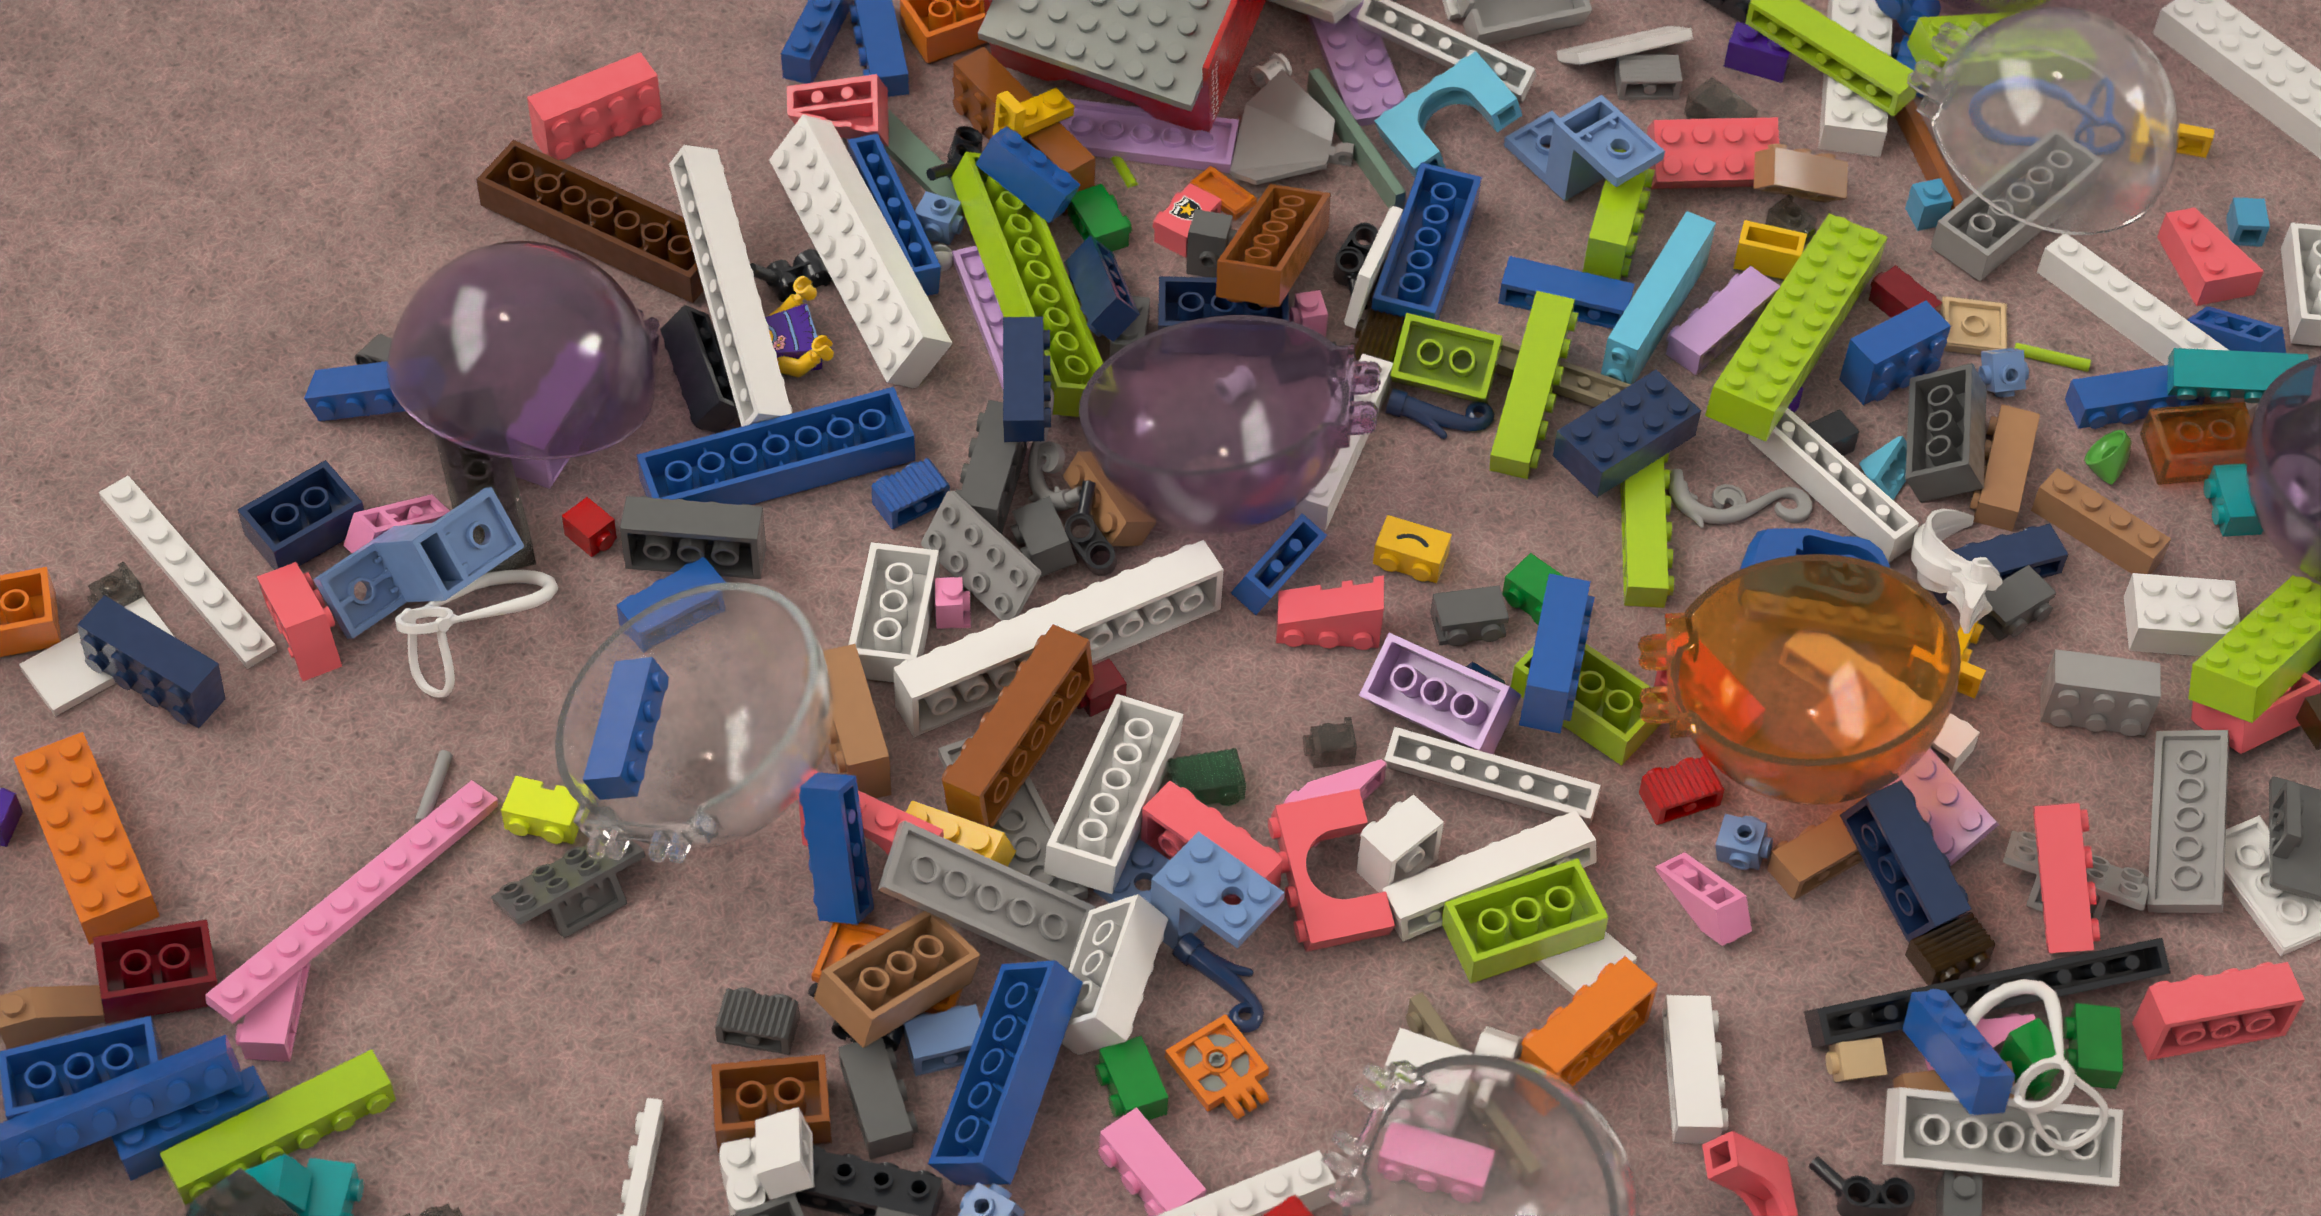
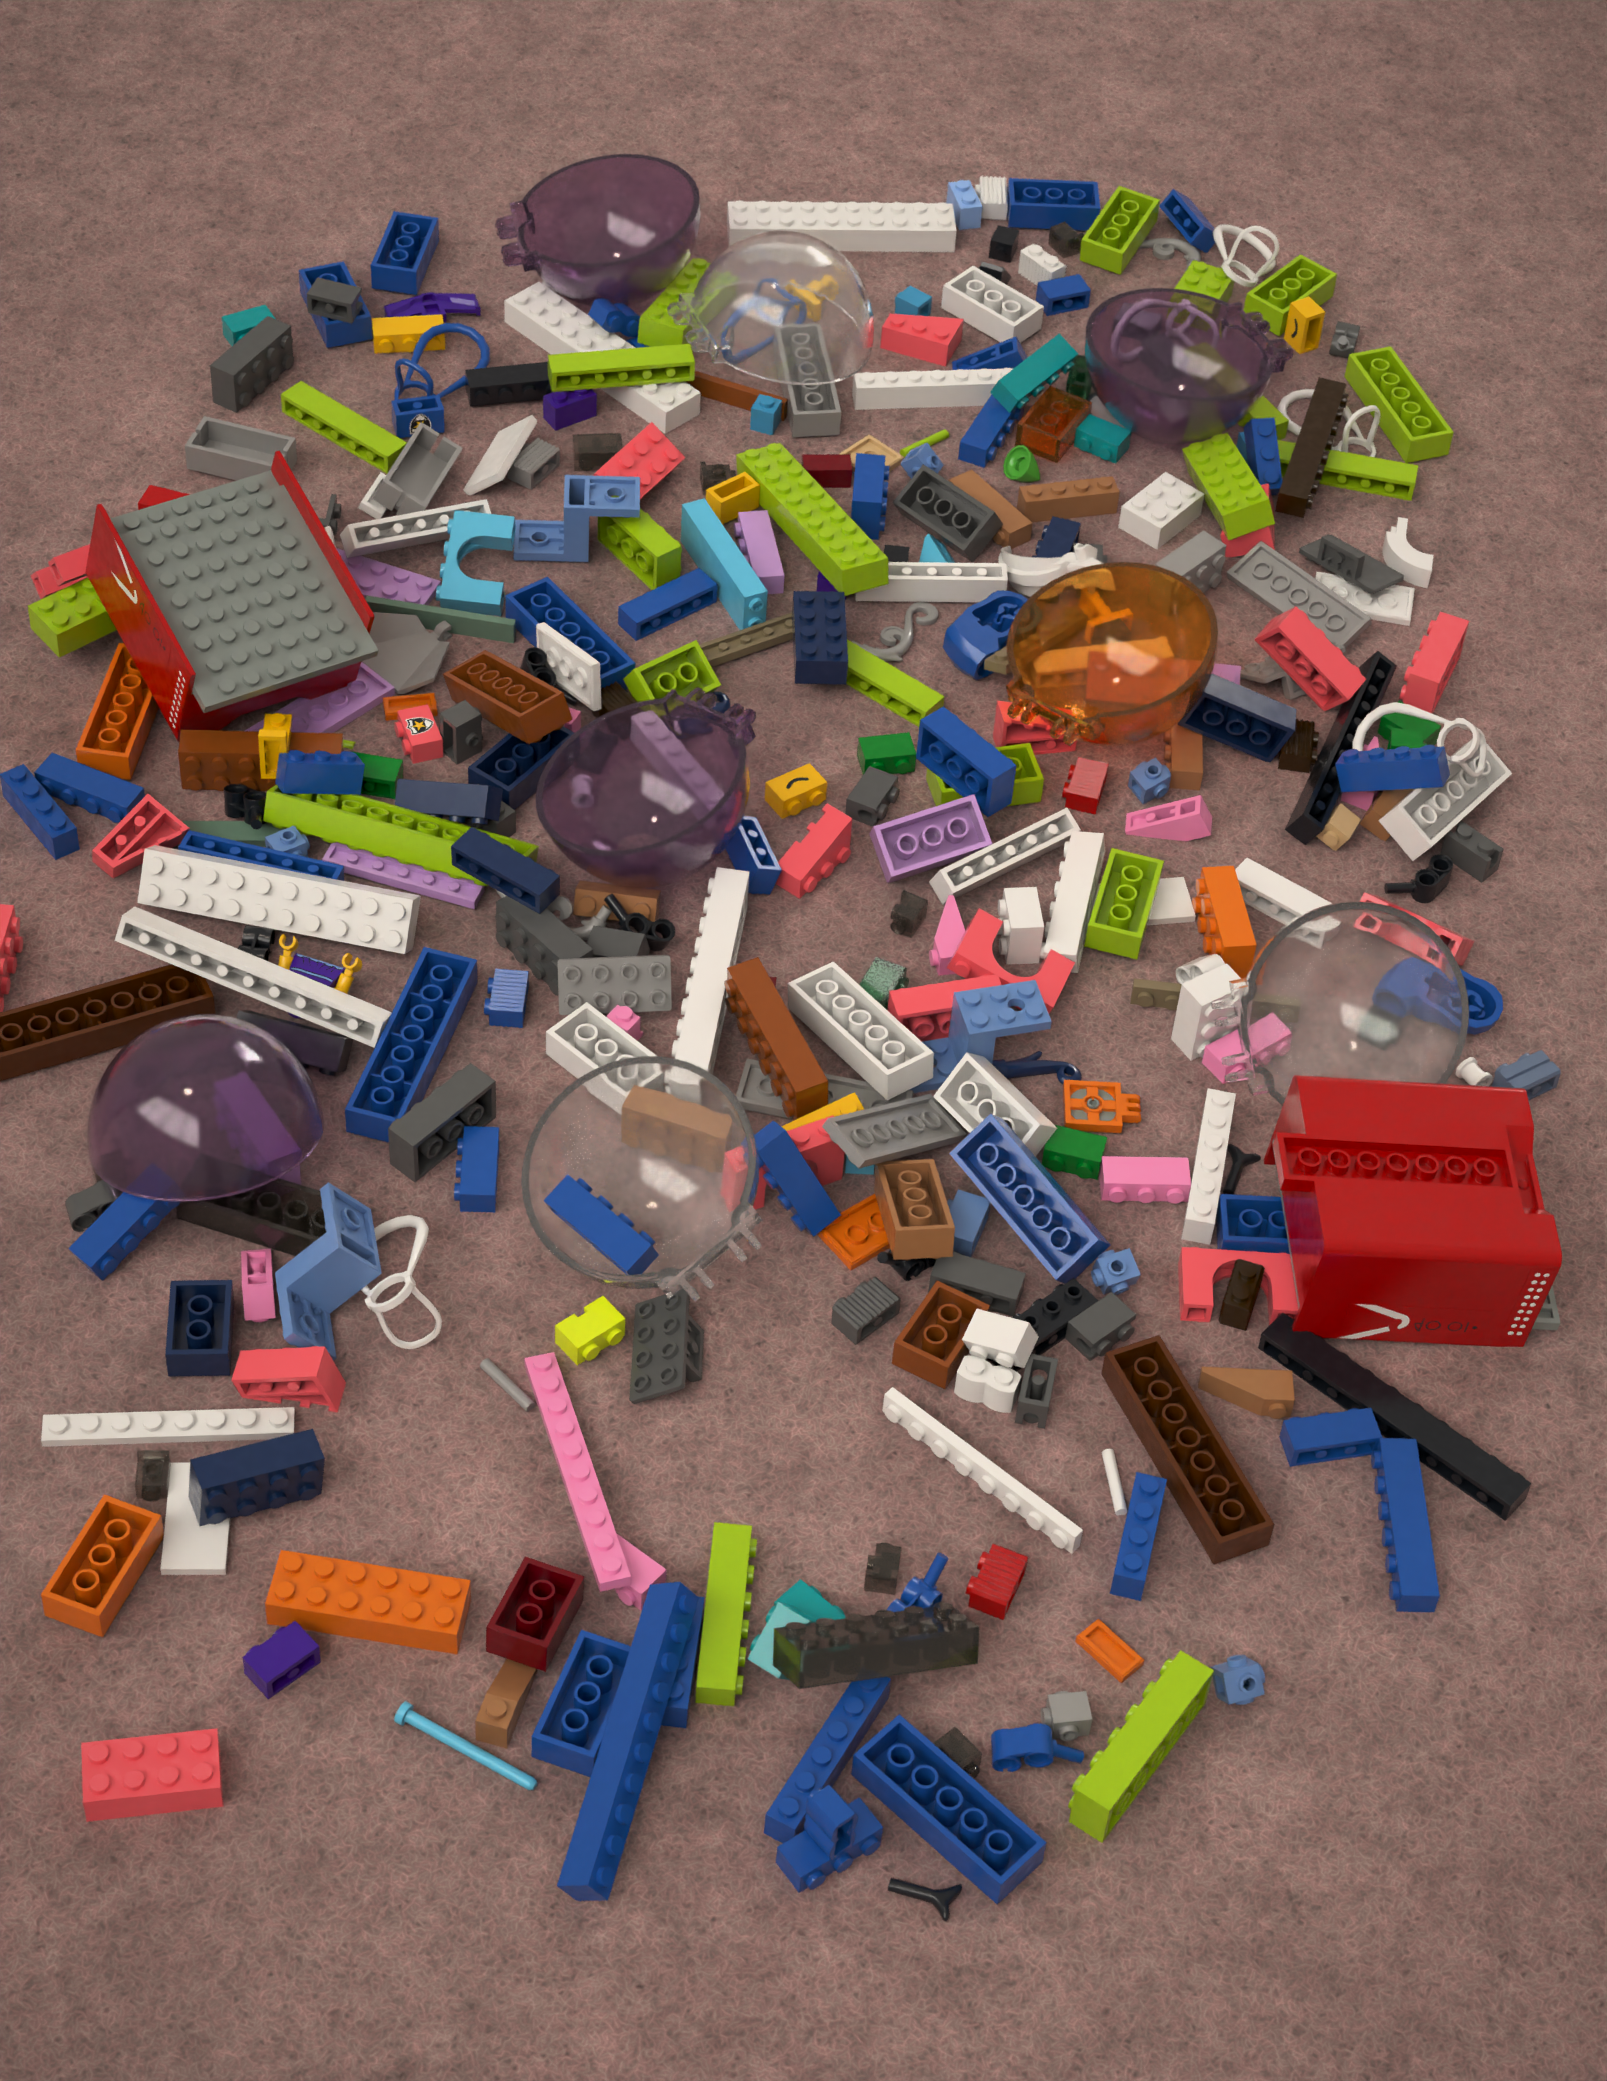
camera: 55 degrees left, 5 degrees down
(589, 527) = (368, 1177): red brick -> none
(1532, 385) = (731, 658): lime brick -> none
(1800, 174) = (695, 444): medium nougat brick -> none

